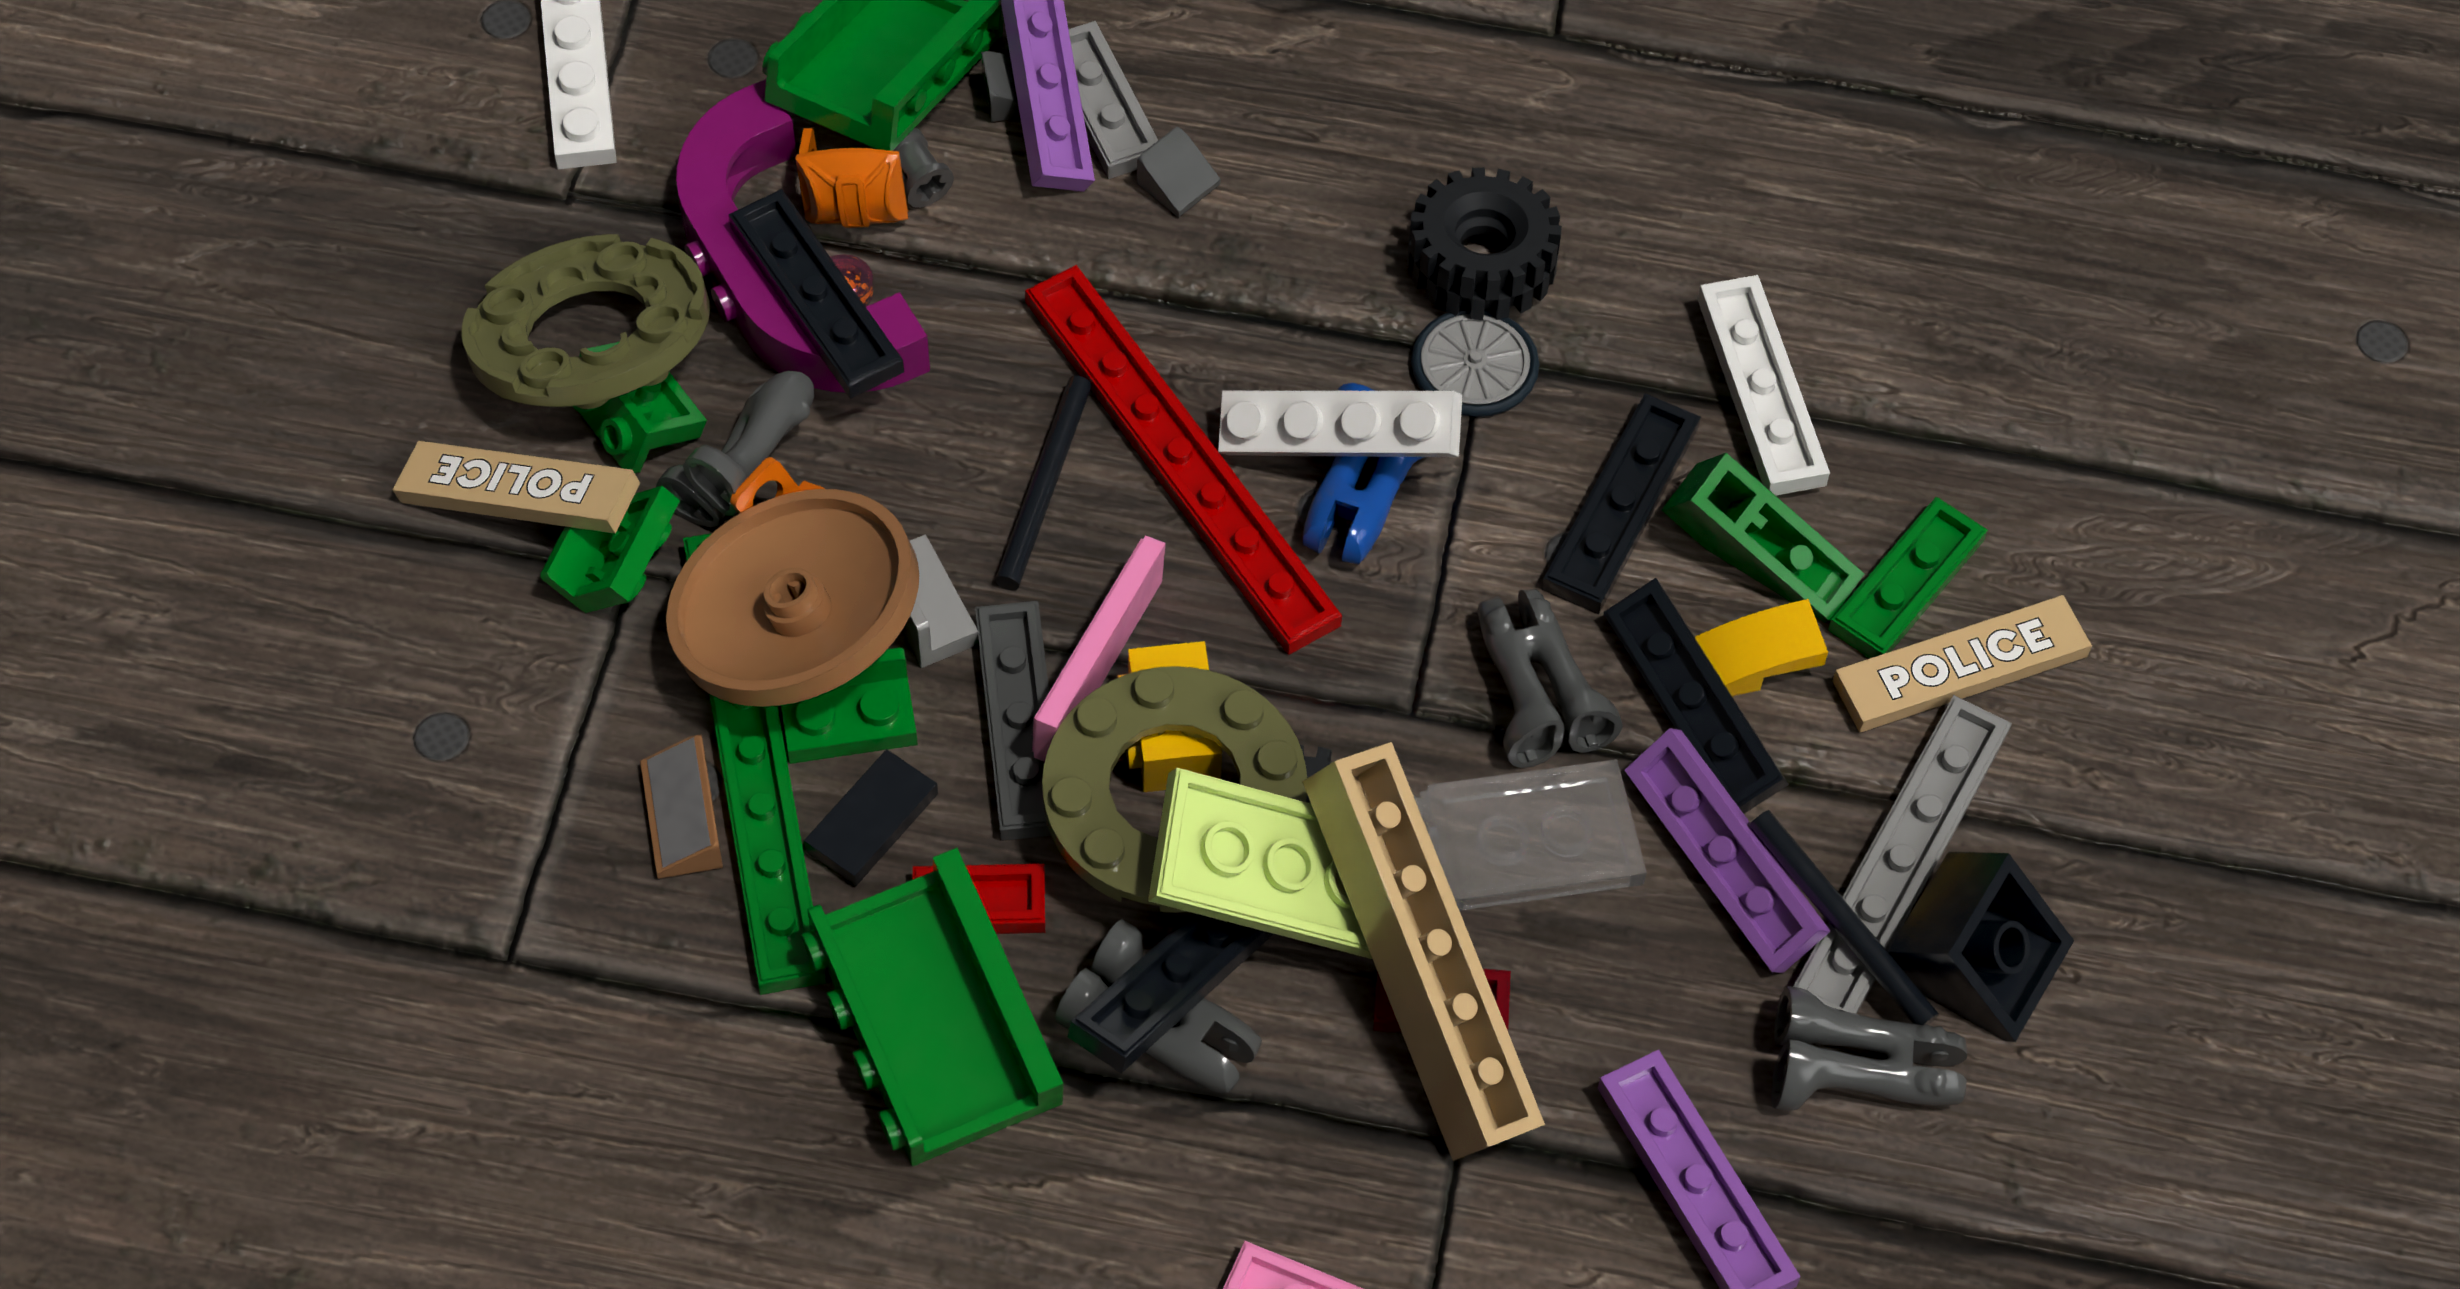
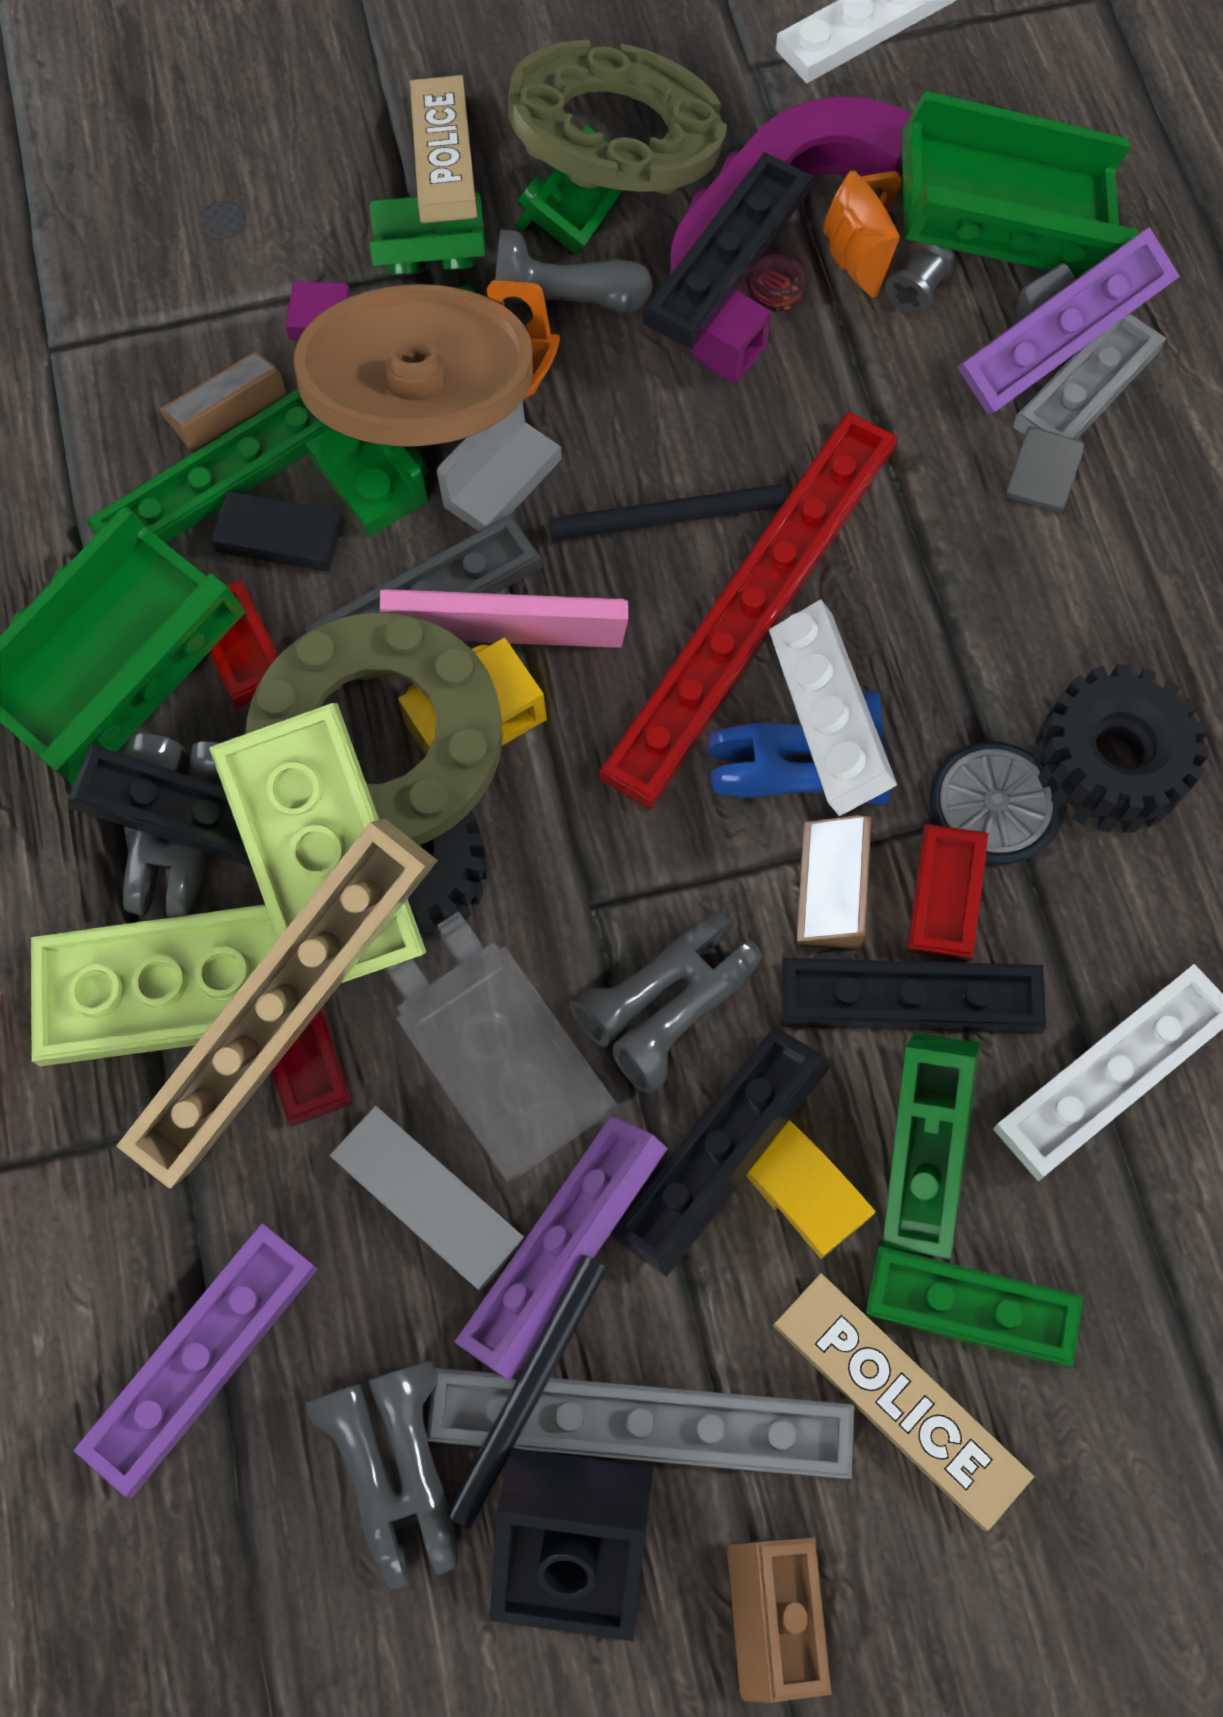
camera: 70 degrees right, 10 degrees up
(627, 684) = (309, 301): none -> magenta tile
(1313, 1096) = (140, 982): none -> yellowish green tile
(1493, 508) = (834, 882): none -> slope
(1544, 431) = (947, 892): none -> red tile
(1630, 947) = (428, 1198): none -> light grey tile
(2098, 829) = (778, 1620): none -> medium nougat slope

